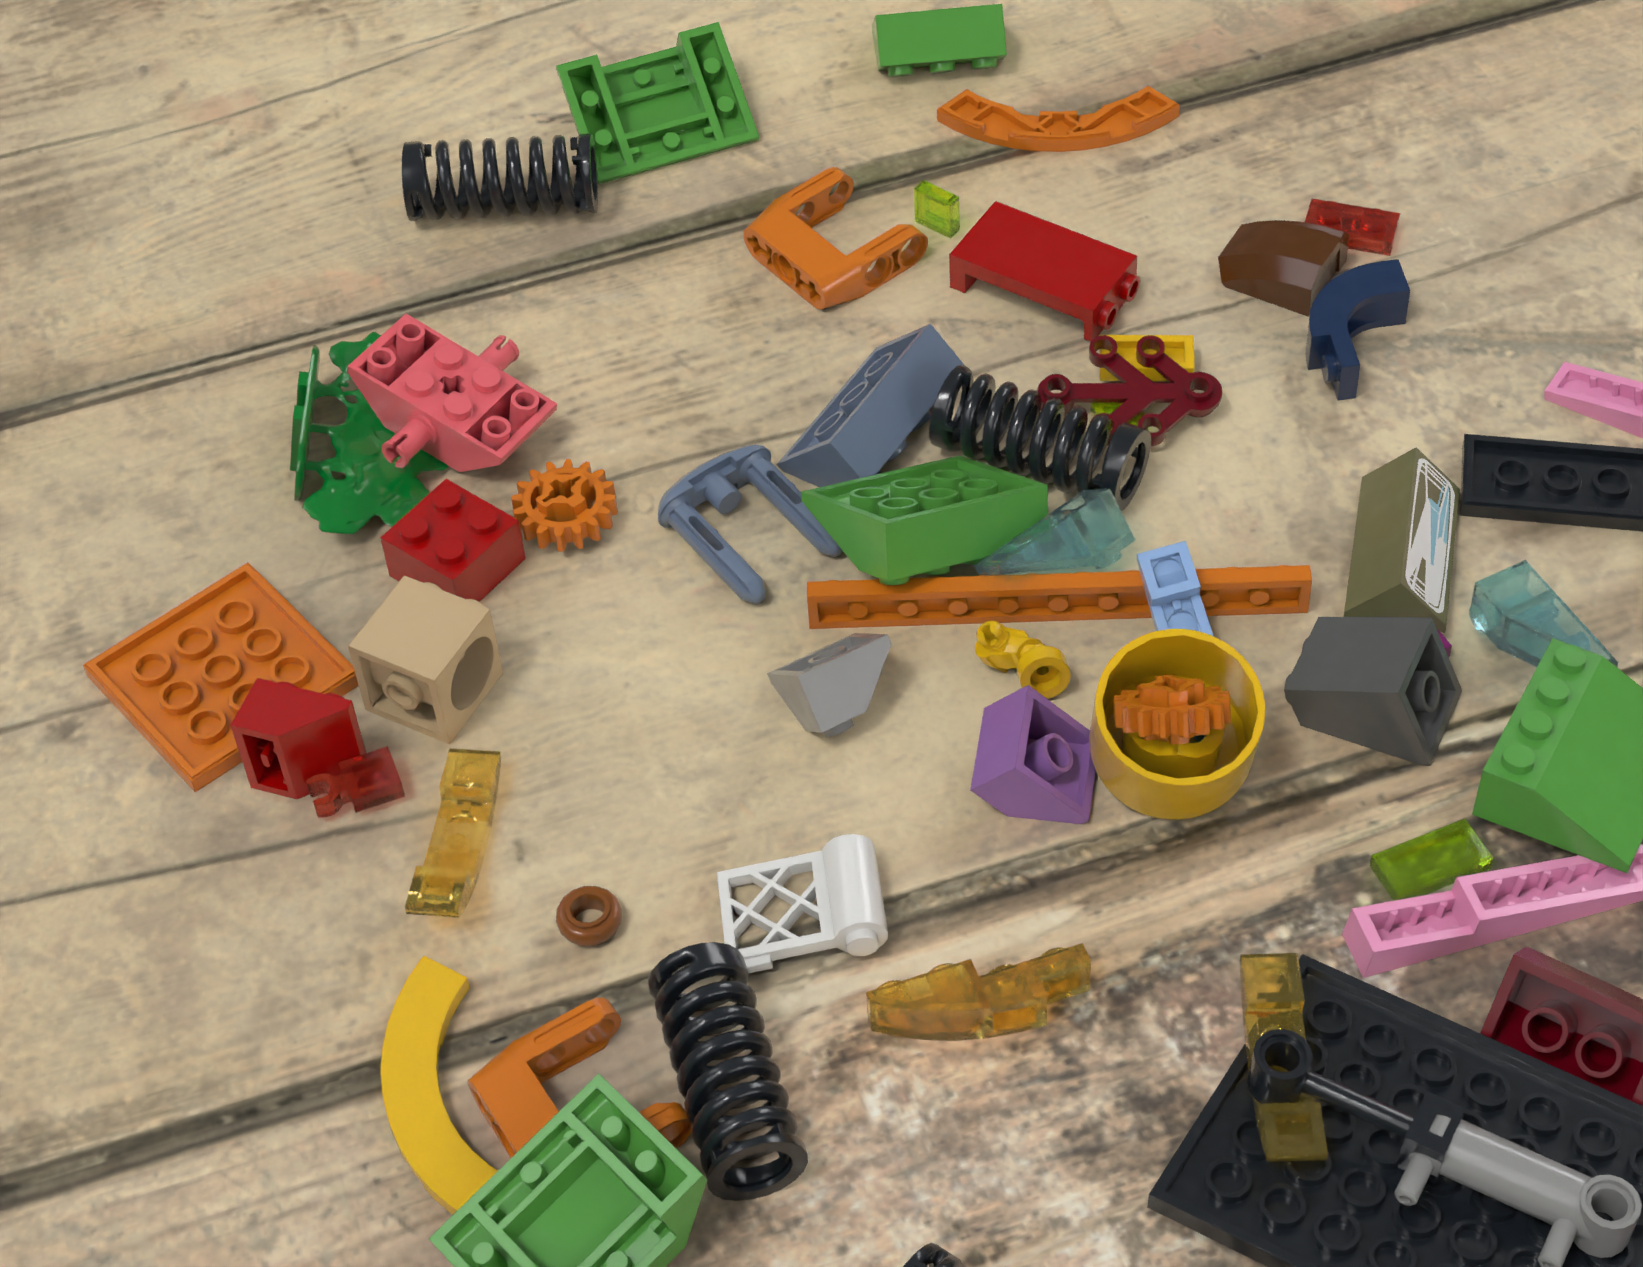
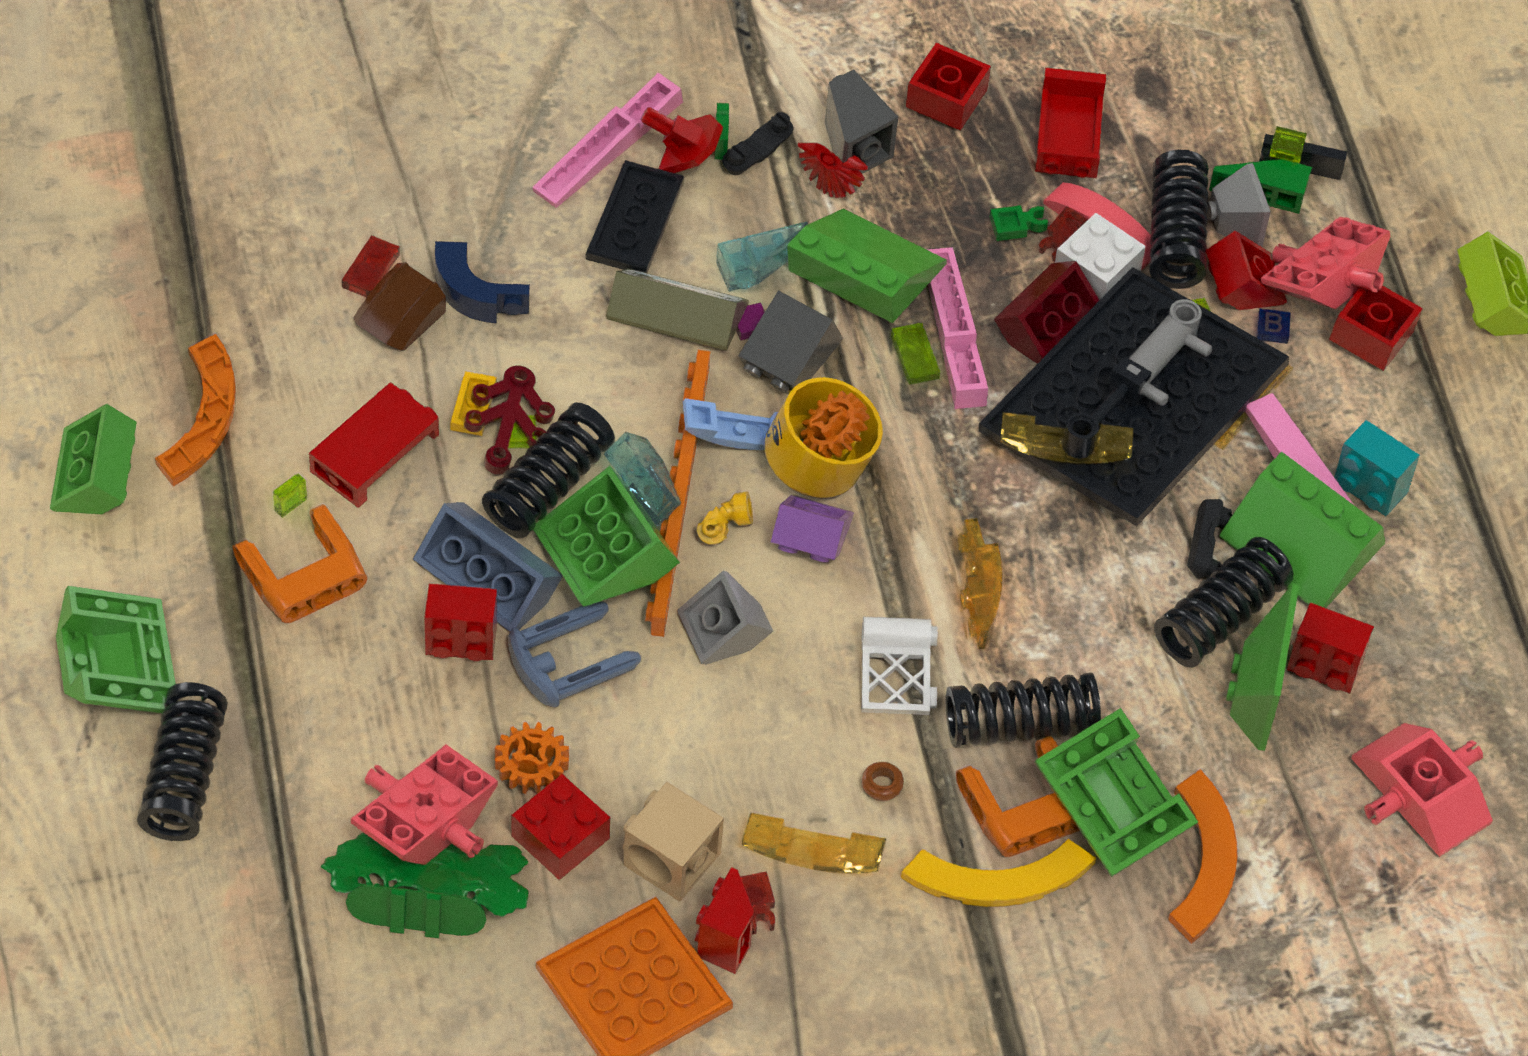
camera: 90 degrees left, 5 degrees up
(752, 384) = (460, 622): none -> red brick

